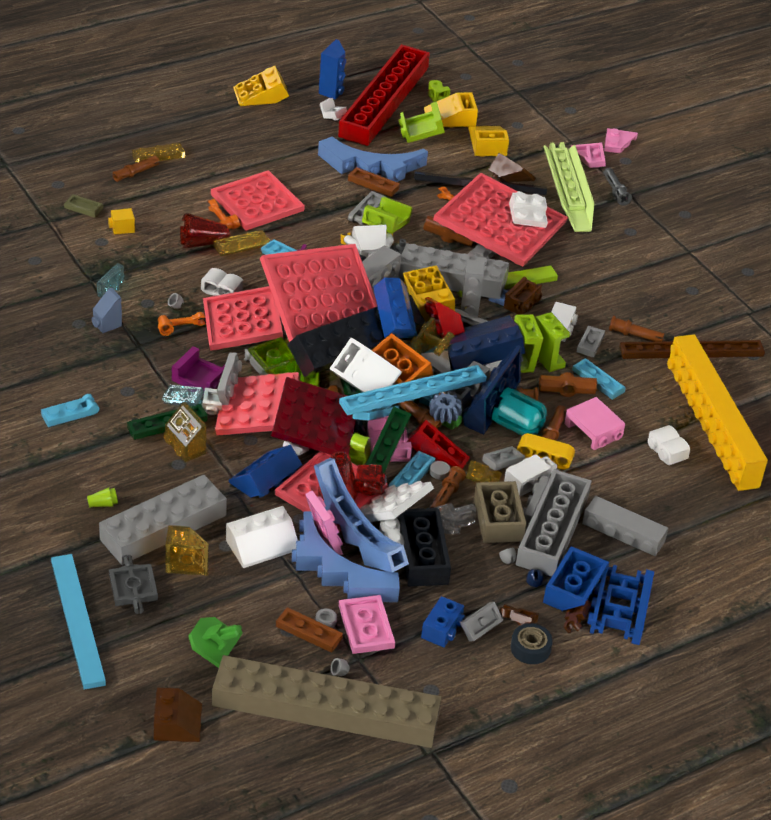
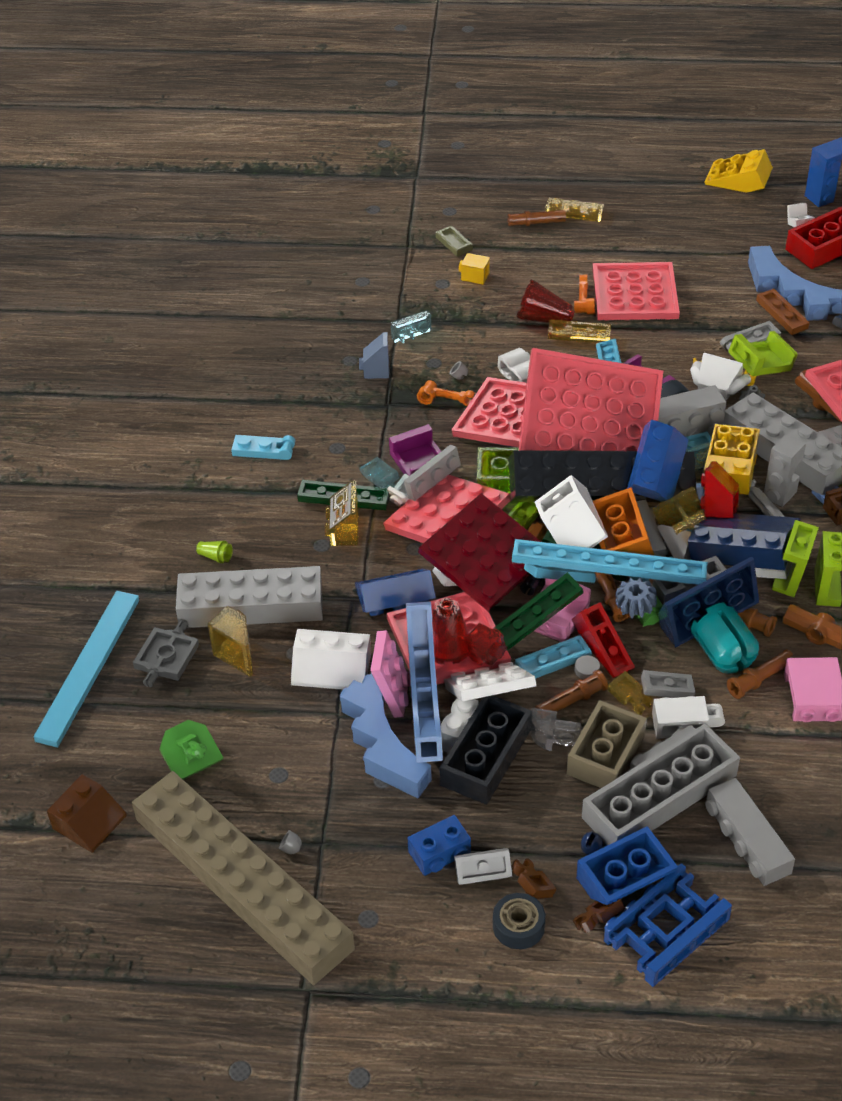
camera: 40 degrees right, 5 degrees up
(309, 629) = (293, 785): dark orange plate -> none
(326, 617) = (324, 781): light grey tile -> none
(360, 449) = (511, 601): lime leg -> none
(366, 624) = (357, 808): bright pink plate -> none
(508, 555) = (577, 801): light grey hinge -> none
(558, 452) = (737, 705): yellow beam -> none

